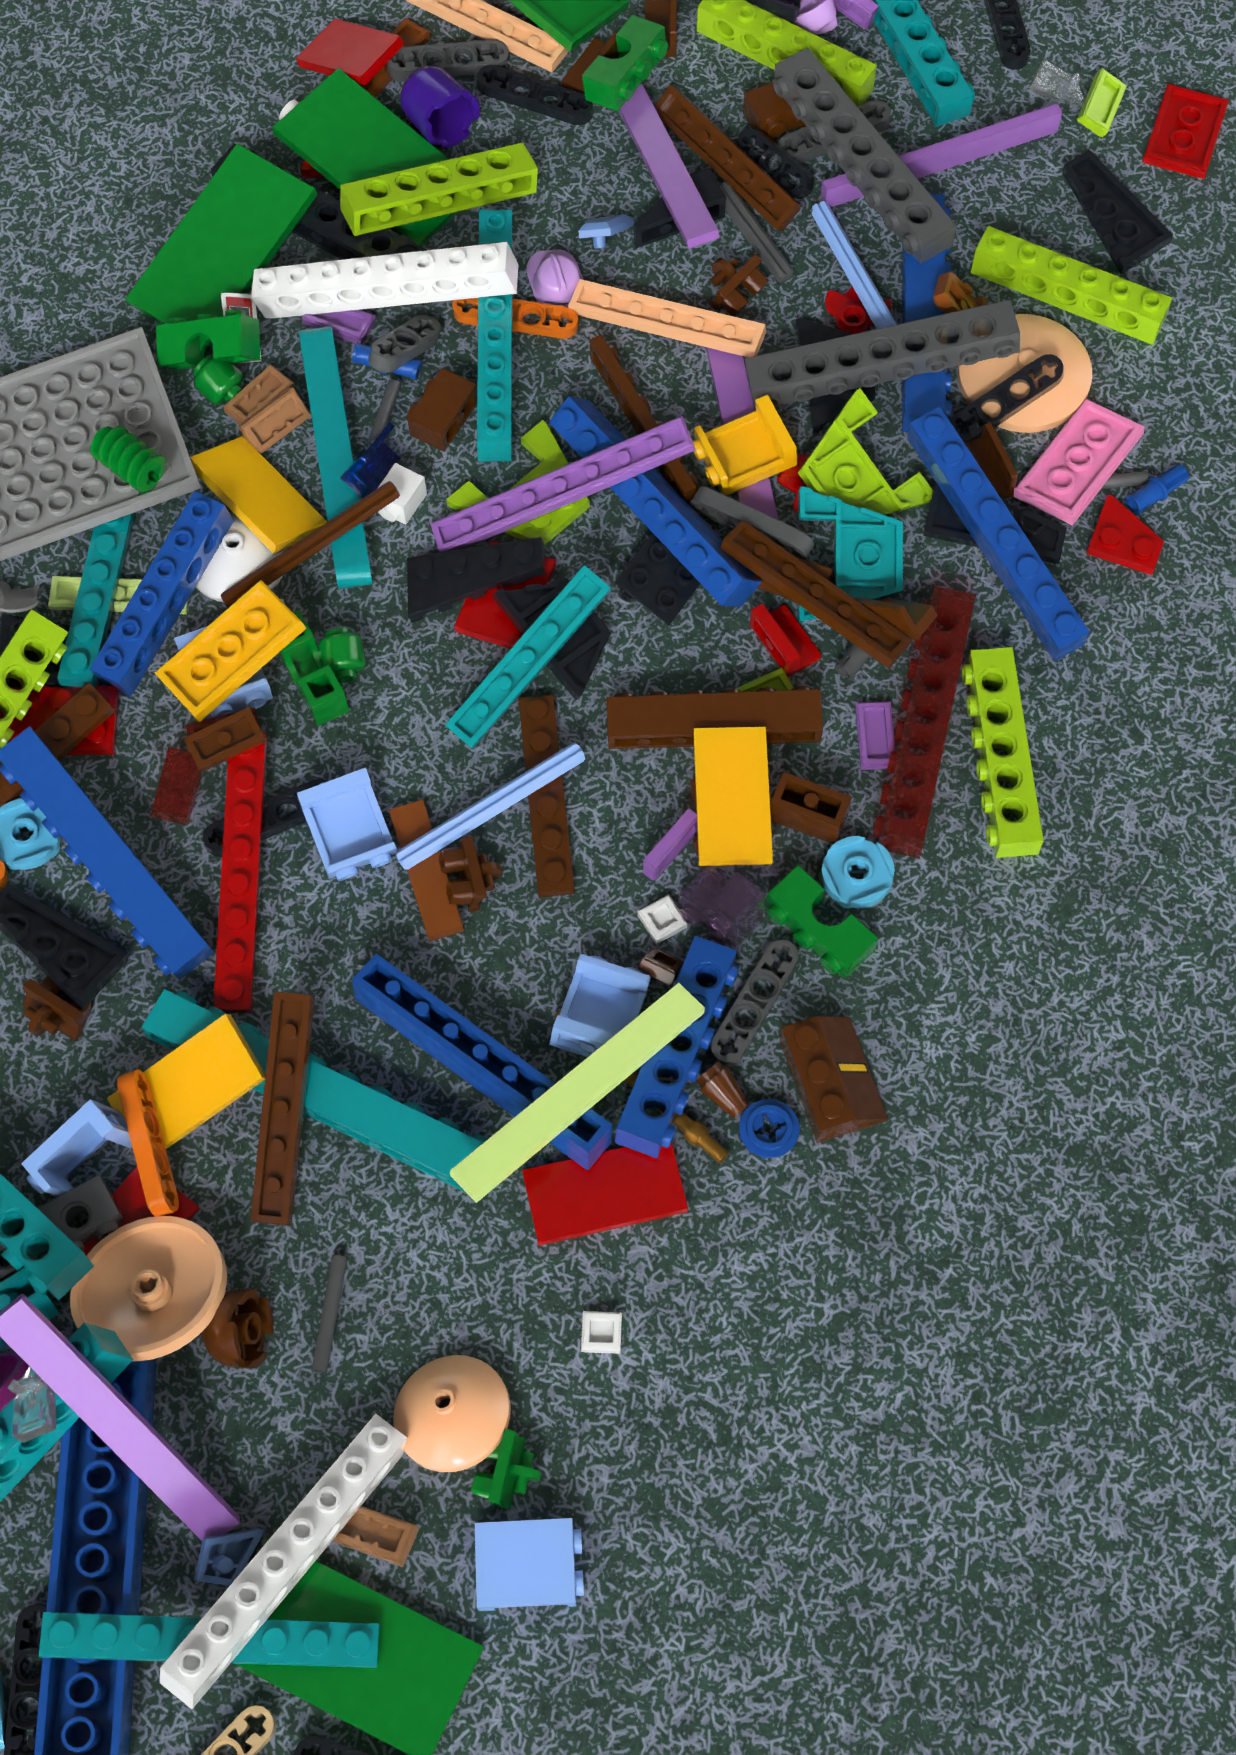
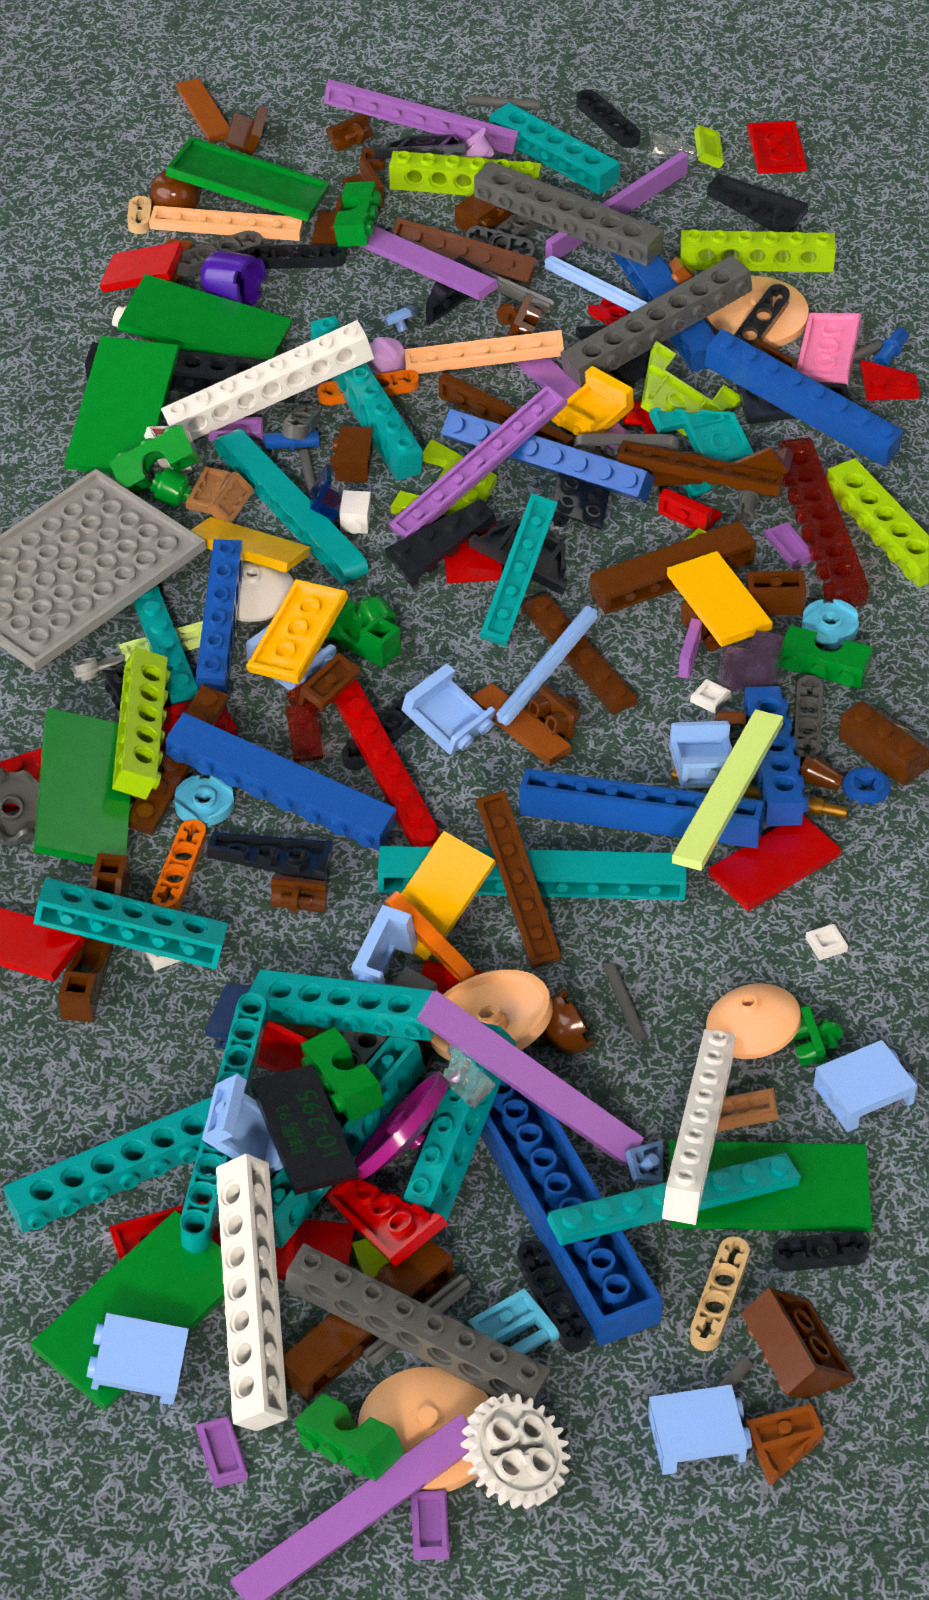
camera: 25 degrees left, 20 degrees down
(128, 457) = (147, 540): green piece -> none
(314, 542) = (314, 553): reddish brown axle -> none
(438, 189) = (268, 322): lime brick -> none

